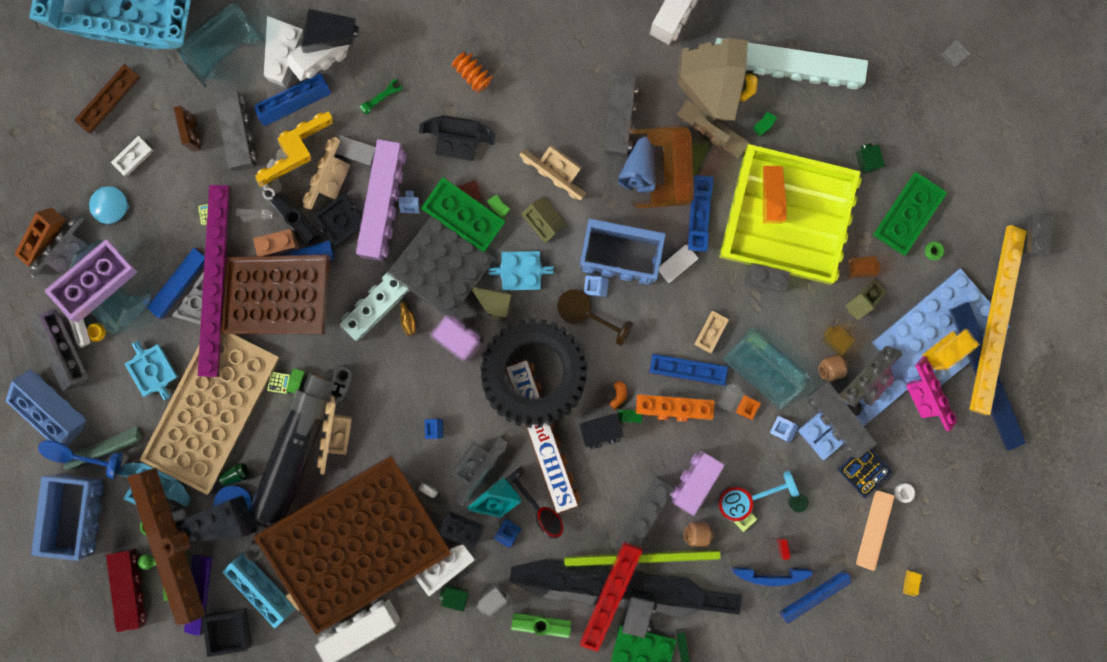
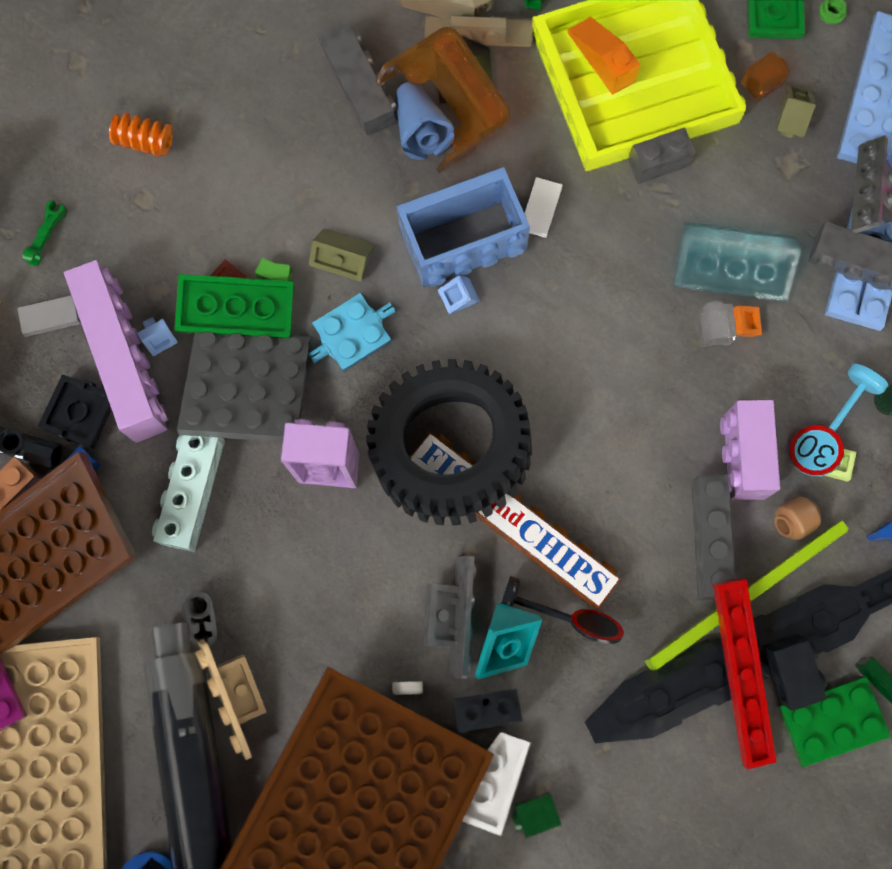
camera: 30 degrees left, 10 degrees down
(235, 474) = (127, 839): dark green cone -> none
(278, 382) = (117, 672): yellowish green tile -> none
(296, 380) = (138, 652): bright green piece -> none
(328, 177) = (32, 366): tan bracket -> none
(407, 320) = (243, 482): pearl gold piece -> none
(433, 428) = (364, 601): blue plate -> none
(457, 135) = (169, 221): black plate -> none
(492, 599) = (590, 782): light grey brick -> none
(494, 303) = (340, 391): olive slope -> none
(507, 533) = (550, 680): blue slope -> none
(528, 622) = (695, 766): bright green piece -> none
(558, 168) = (319, 181): tan bracket -> none
(576, 306) = (449, 333): dark brown piece -> none
(601, 430) = (586, 458): black brick -> none
(621, 395) = (578, 405): orange arm -> none
(629, 416) = (608, 424): green piece -> none
(674, 407) = (658, 375): orange bracket -> none
(688, 369) = (641, 324): blue tile -> none
(699, 214) = (529, 136): blue slope -> none
(711, 332) = (638, 260): tan plate -> none
(784, 429) = (808, 322): light blue slope -> none
(833, 368) = (815, 210): medium nougat head -> none
(837, 339) = (796, 175): clear yellow brick -> none

